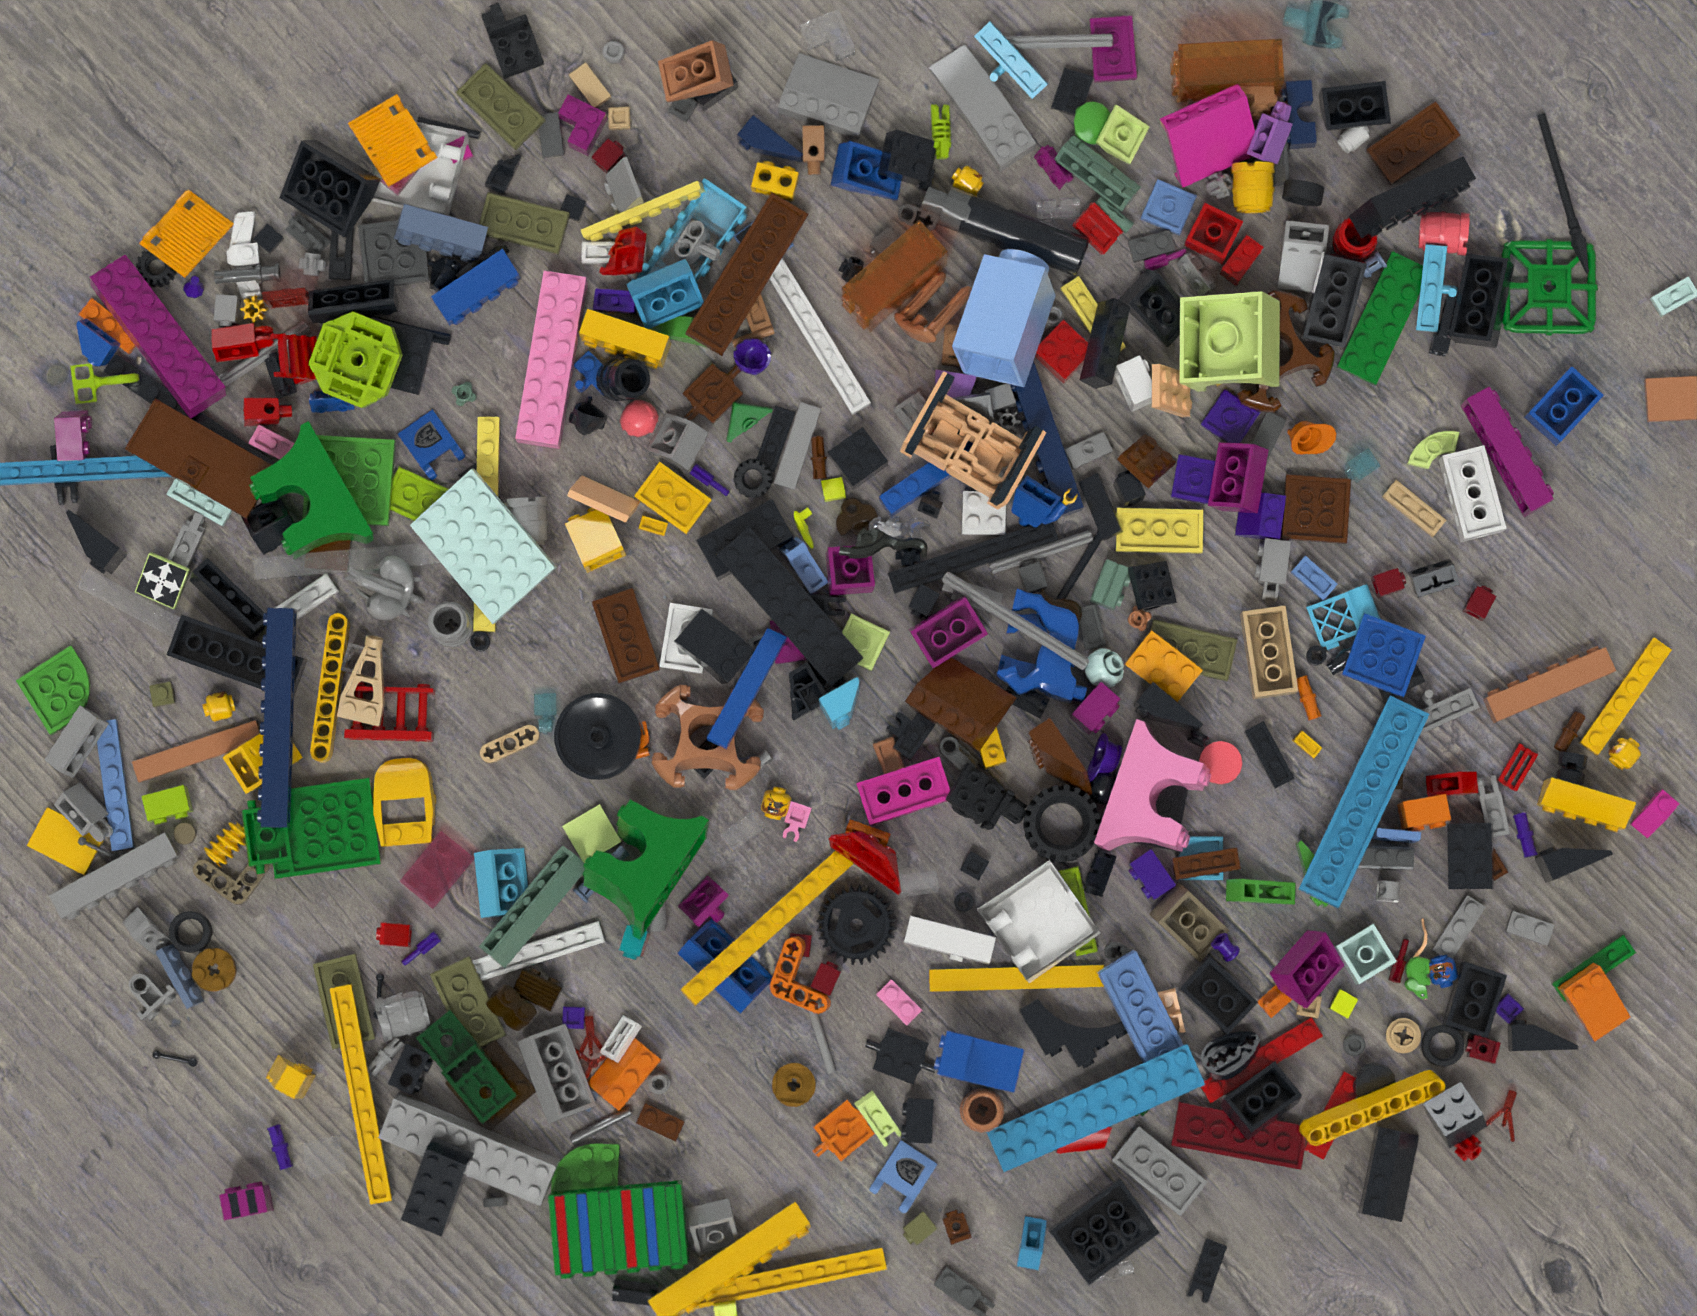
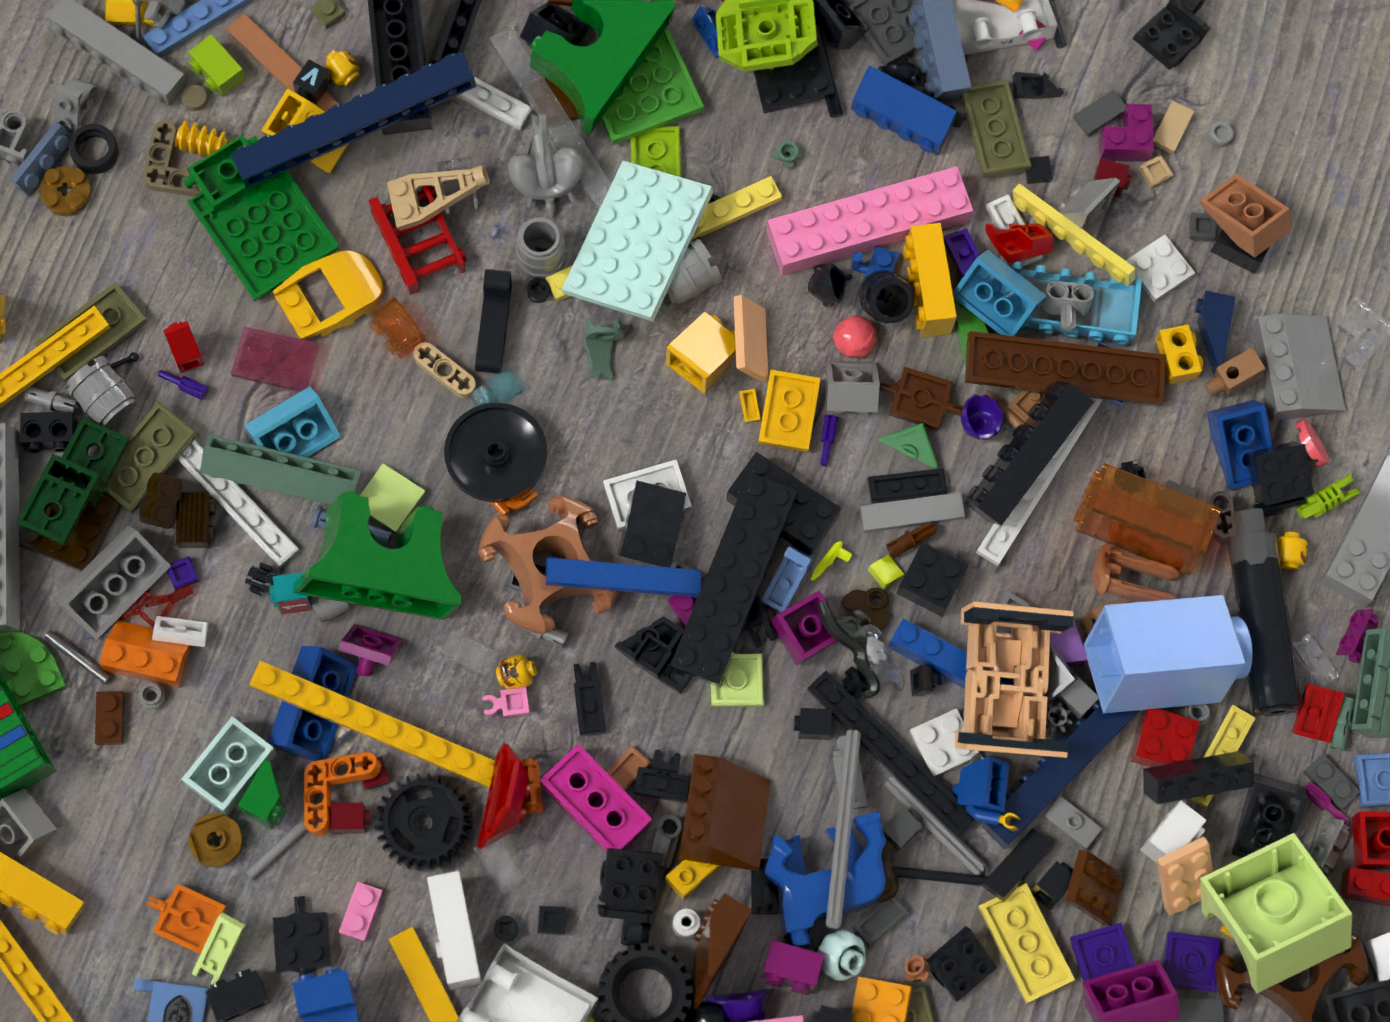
camera: 55 degrees right, 10 degrees down
(221, 735) = (312, 81): none -> black brick
(333, 698) = (401, 162): yellow beam -> none
(429, 440) = (720, 142): blue flag -> none
(458, 764) = (396, 327): none -> clear orange brick
(491, 688) = (494, 320): none -> black beam
(500, 106) = (1102, 51): olive tile -> none
(548, 617) = (598, 343): none -> sand green hair
(609, 960) = (260, 578): none -> black gear
(625, 636) = (618, 432): reddish brown plate -> none
(698, 158) = (1160, 268): none -> white plate
(744, 1049) = (228, 766): none -> light aqua brick
(747, 490) = (849, 466): black tyre -> none
(782, 1033) = (263, 798): none -> green slope
(800, 337) = (1028, 452): none -> black brick
(824, 759) = (589, 702): none -> black hinge
(840, 704) = (656, 683): medium azure slope -> none
(895, 120) = (1312, 442): none -> coral tile
(948, 631) = (794, 764): magenta brick -> none
(1021, 774) = (682, 931): none -> white brick
(1110, 584) = (937, 918): sand green brick -> none

